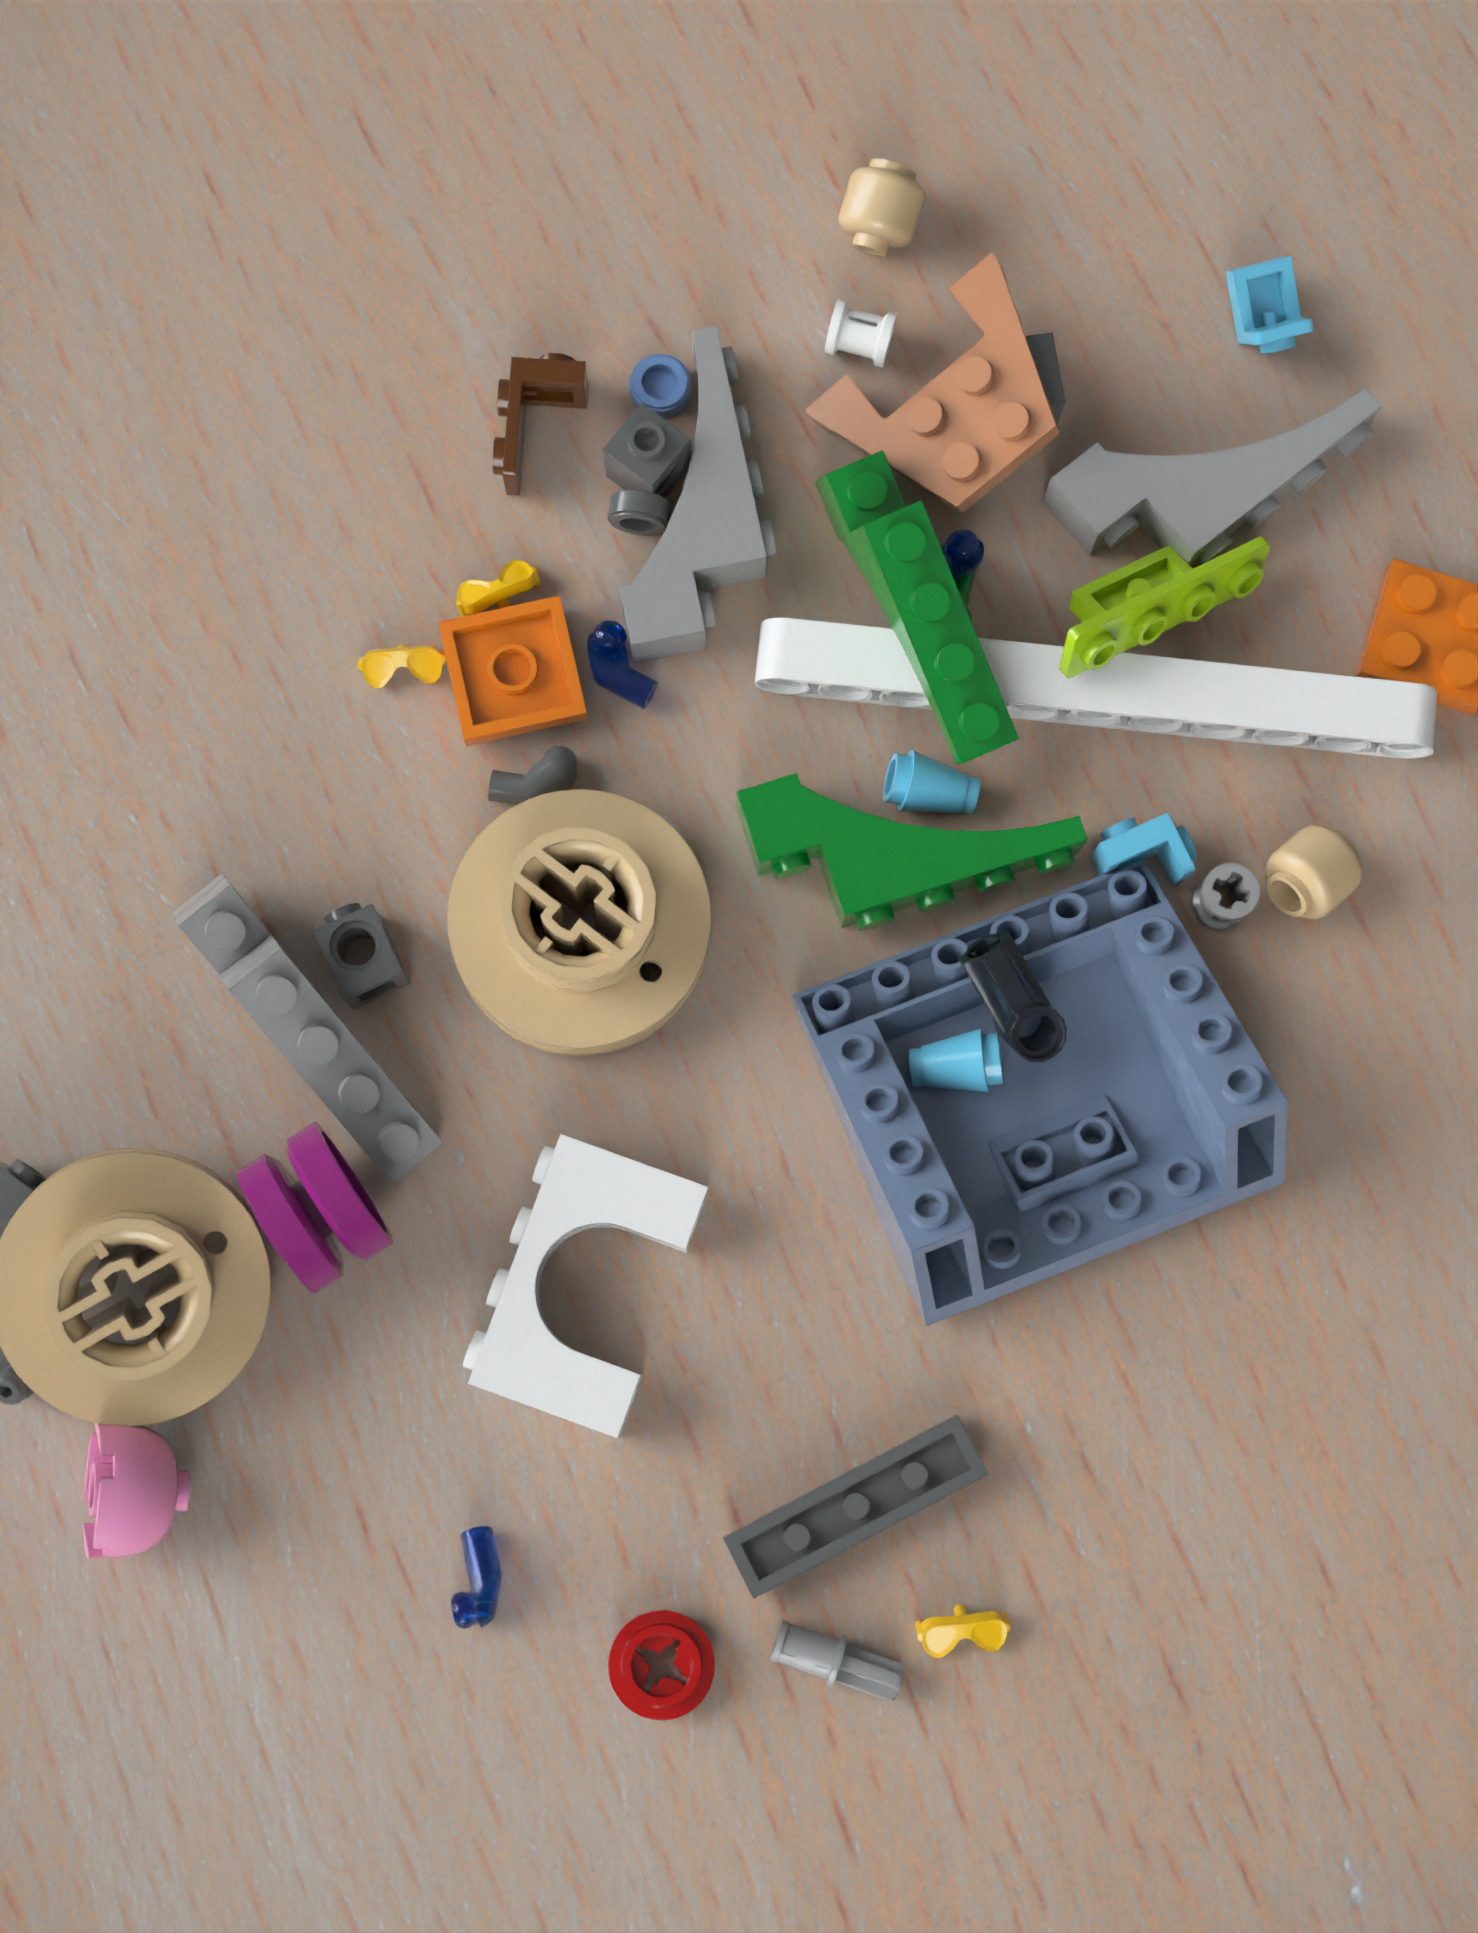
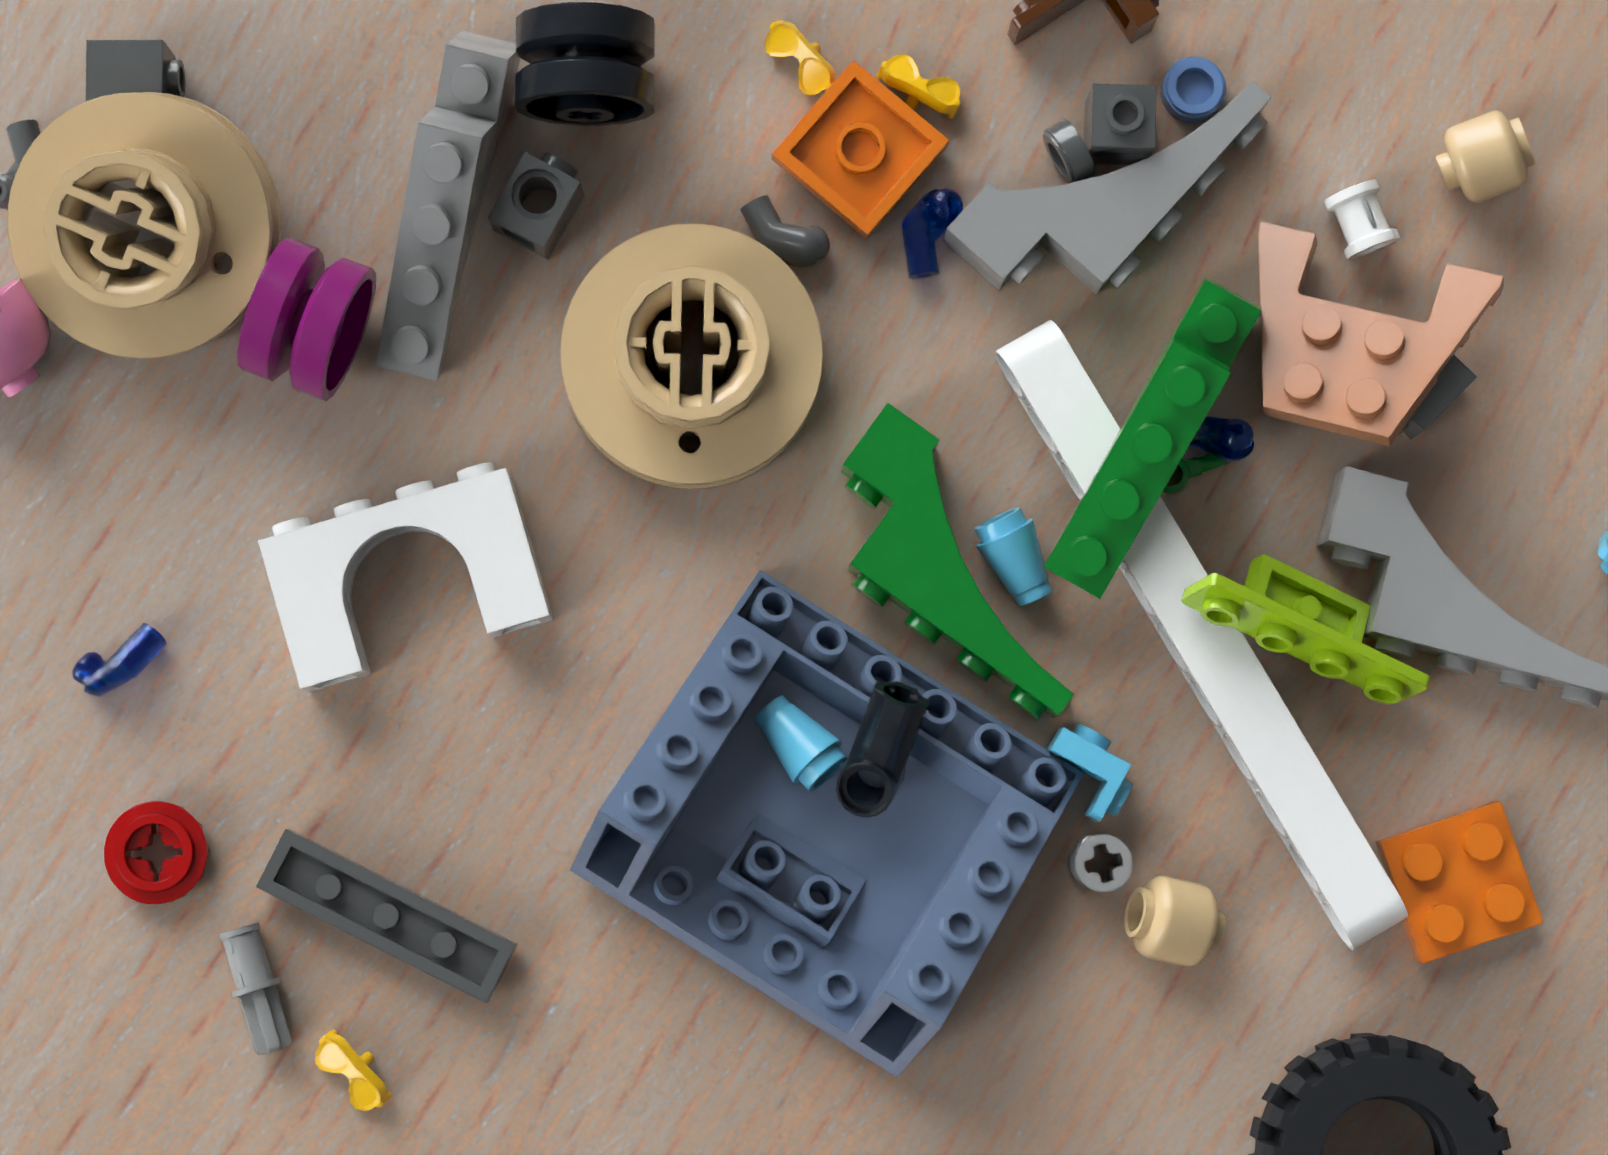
camera: 50 degrees right, 5 degrees up
(279, 829) = (585, 64): none -> black wheel

